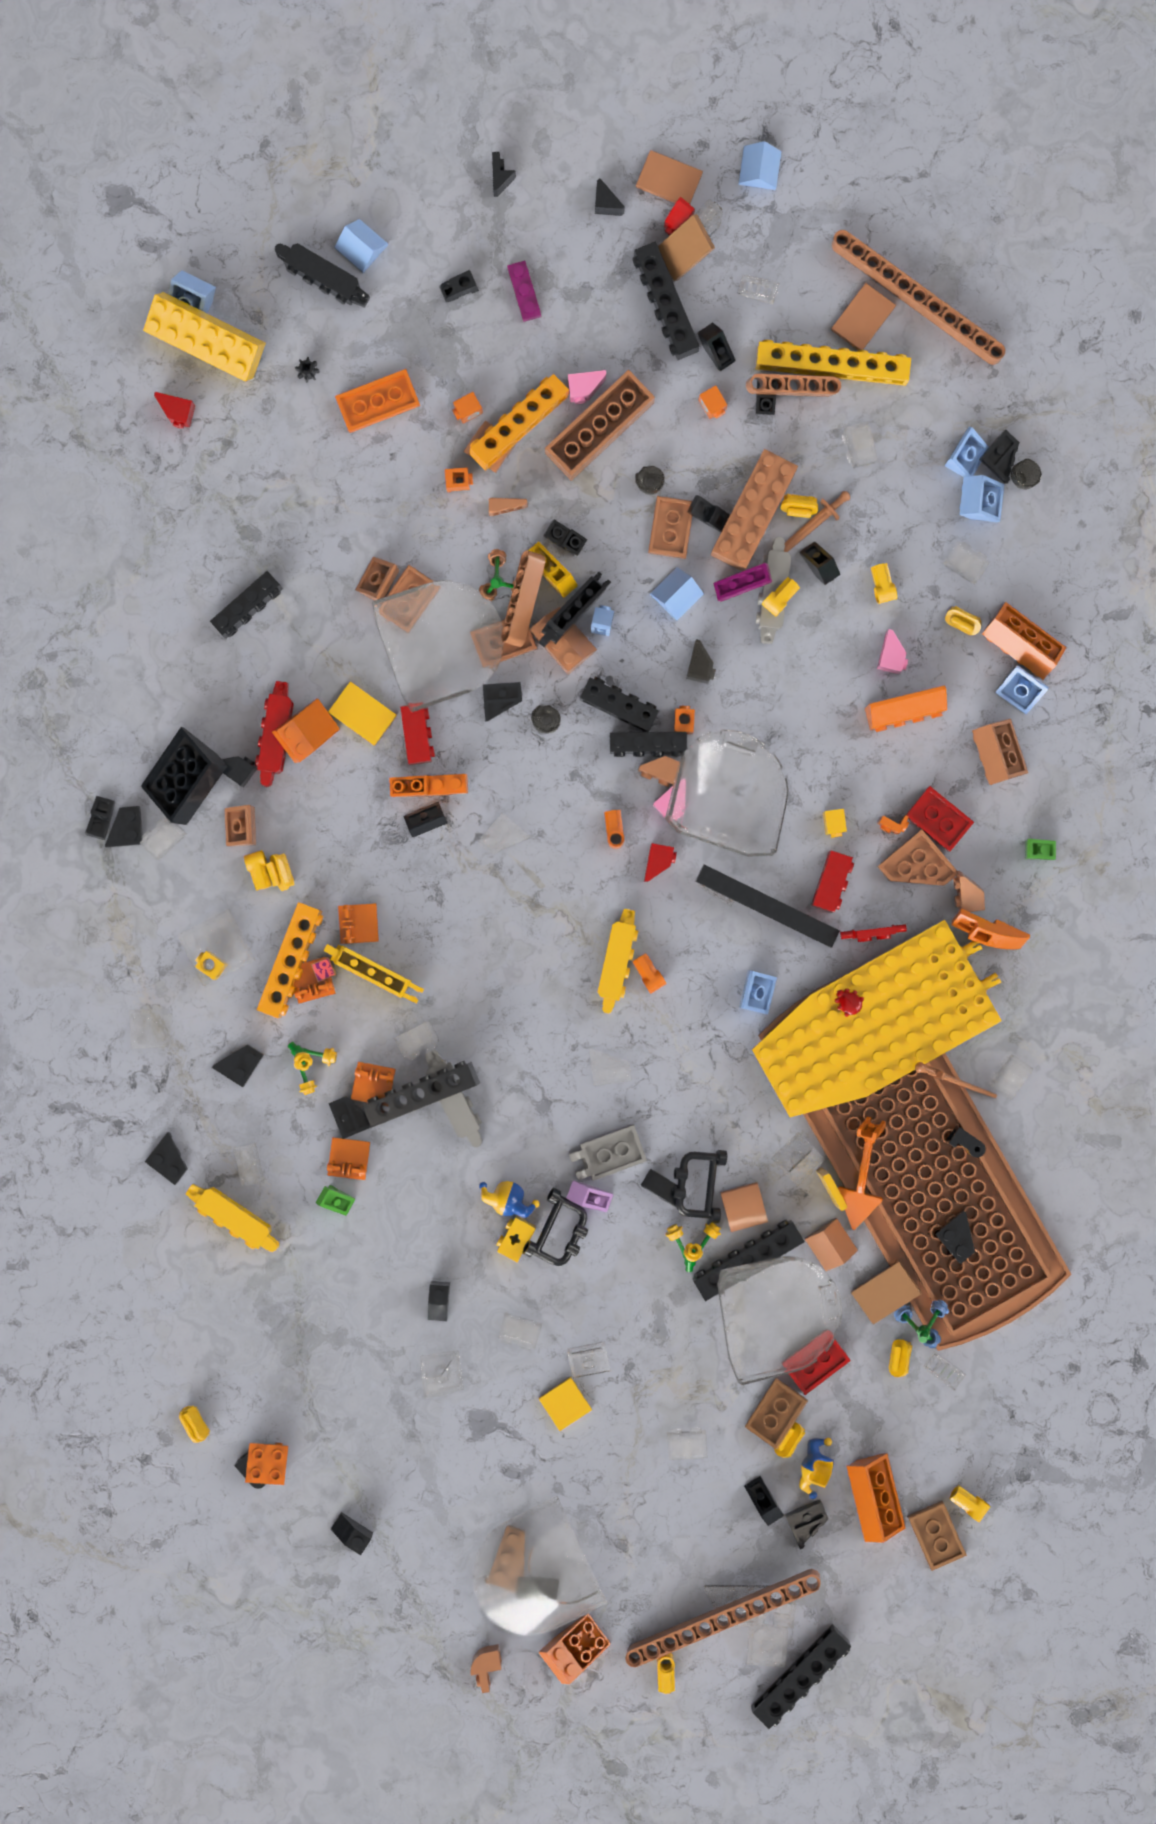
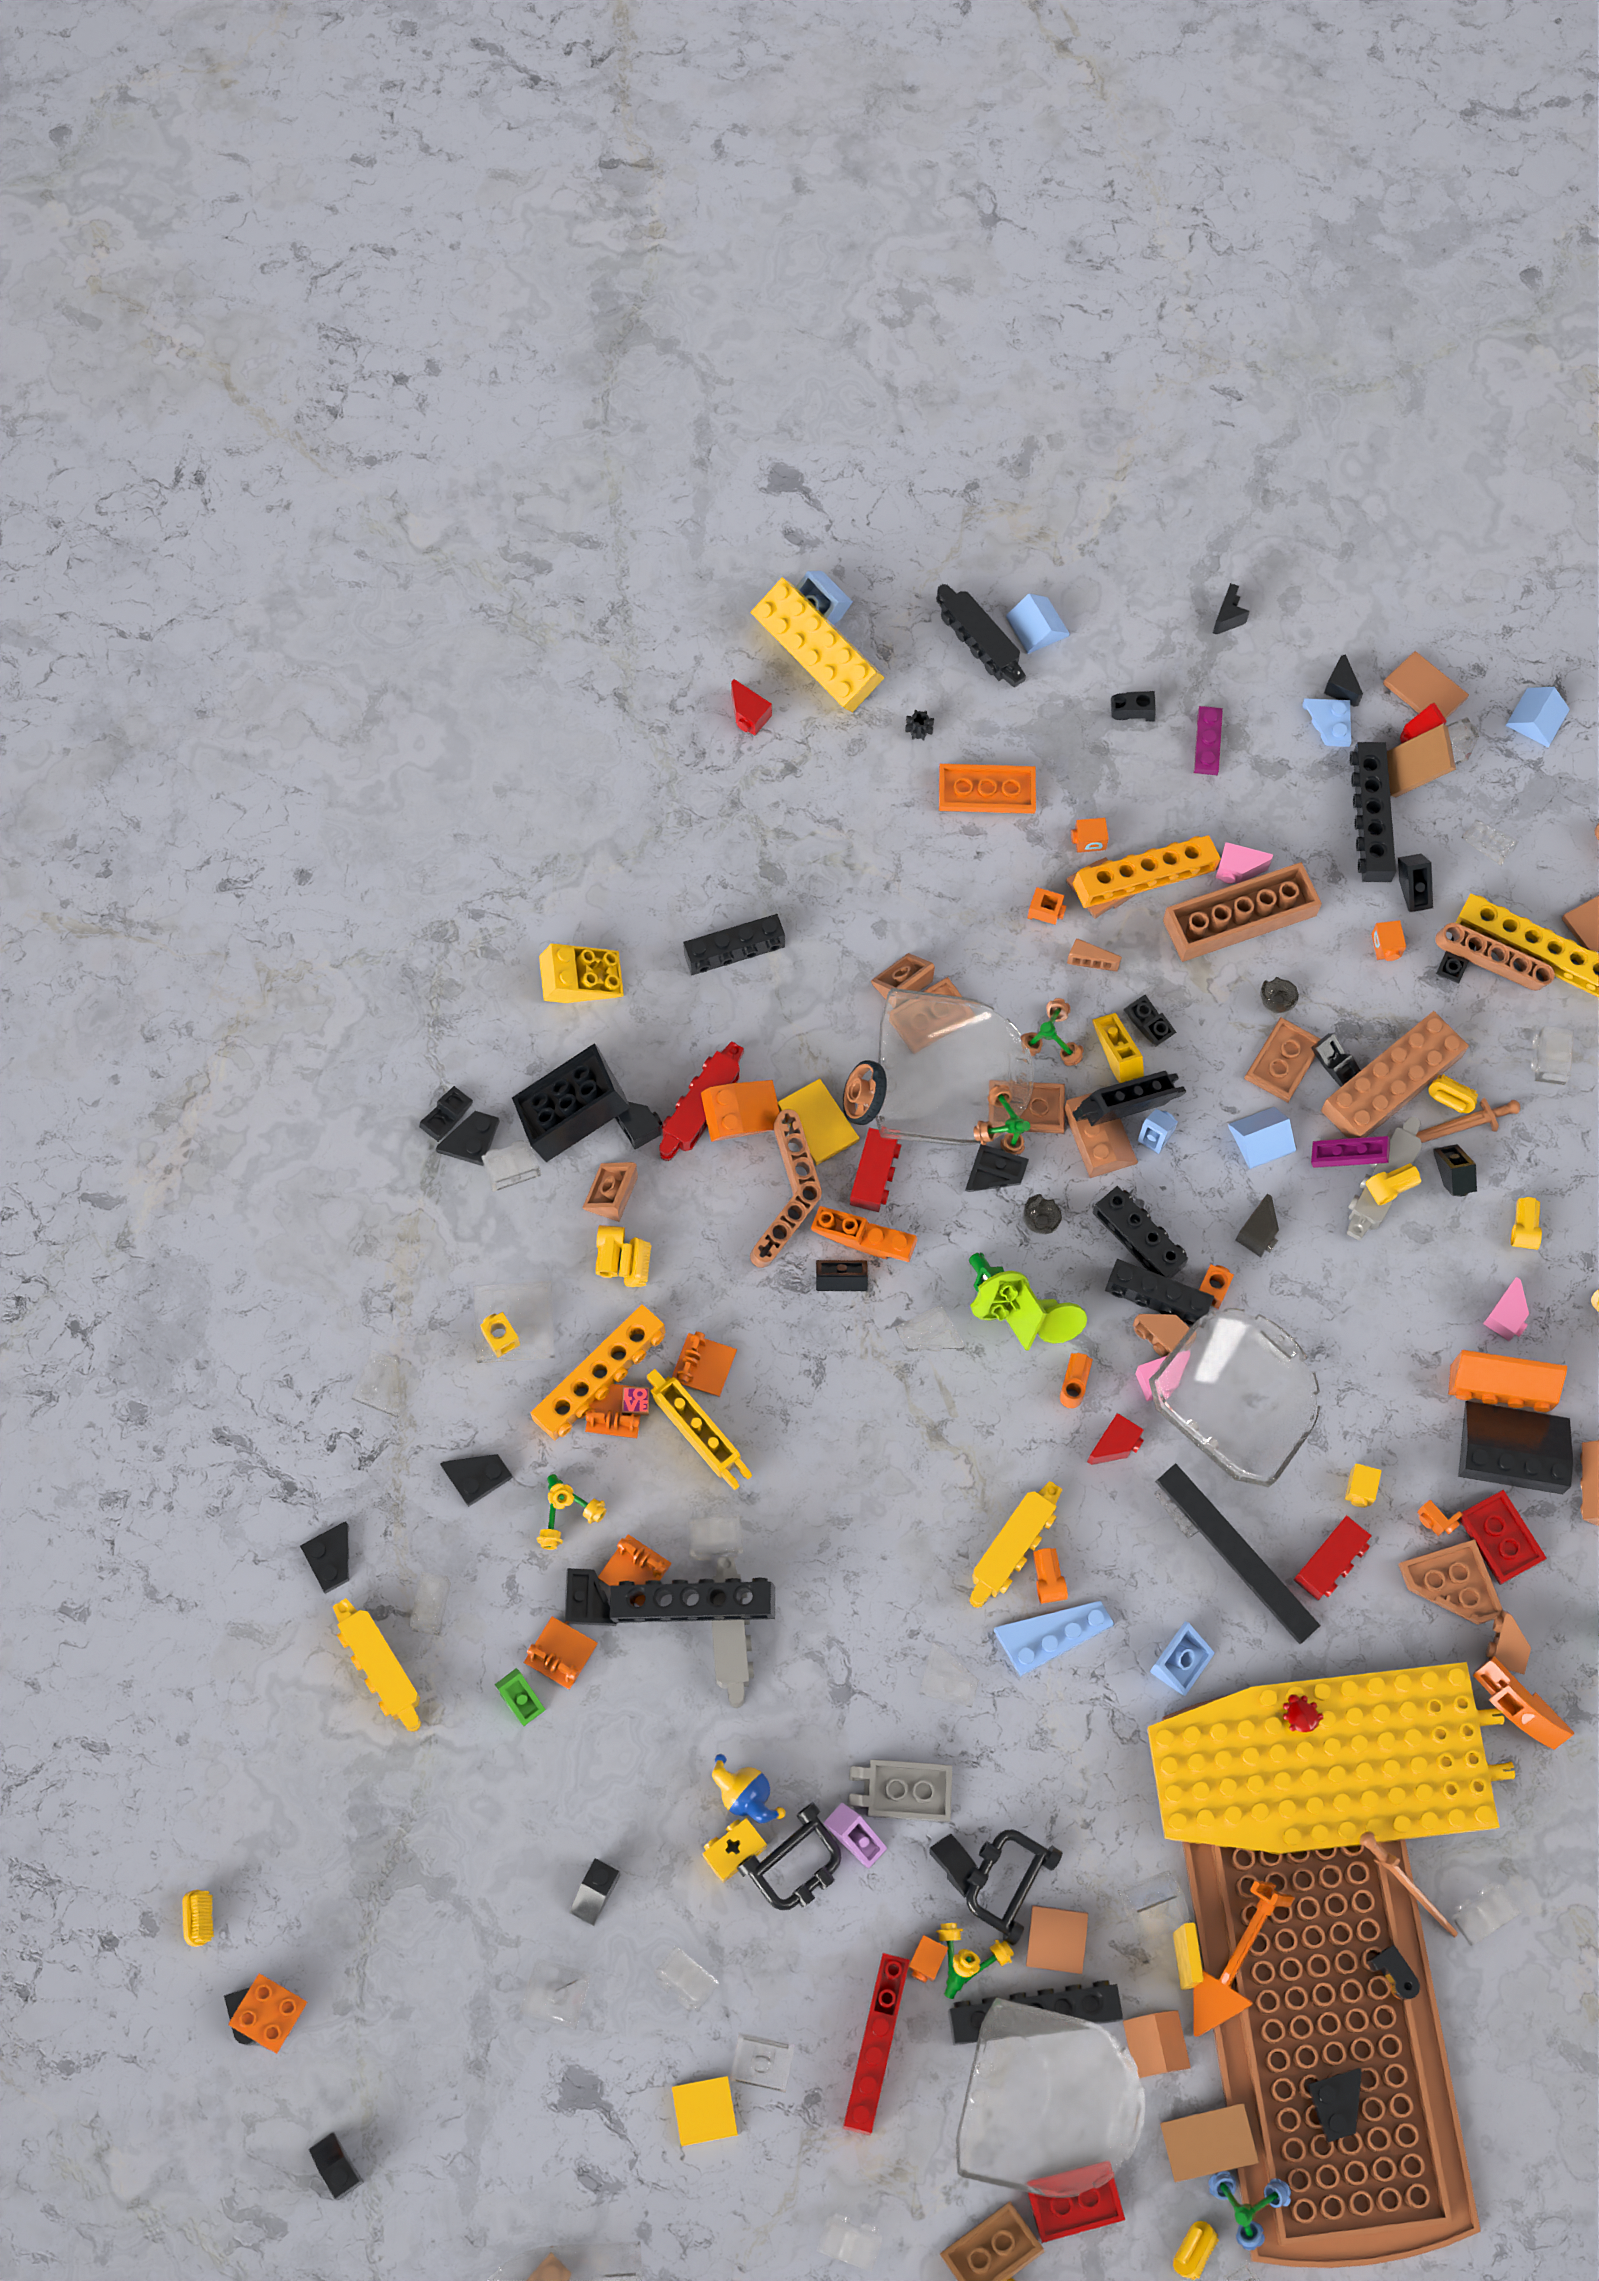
camera: 20 degrees right, 20 degrees down
(147, 673) = (580, 974): none -> yellow slope
(369, 769) = (798, 1184): none -> nougat beam
(386, 682) = (865, 1093): none -> wheel
(502, 669) = (1013, 1142): none -> nougat plant
(523, 598) = (1071, 1063): nougat beam -> none
(551, 791) = (1010, 1298): none -> lime piece
(608, 235) = (1331, 720): none -> light blue wing
(655, 1321) = (876, 2044): none -> red slope
(662, 1014) = (1045, 1637): none -> light blue wing
(667, 1255) = (927, 1959): none -> orange brick
(880, 933) = (1372, 1644): red plate -> none
(928, 750) = (1516, 1448): none -> black slope

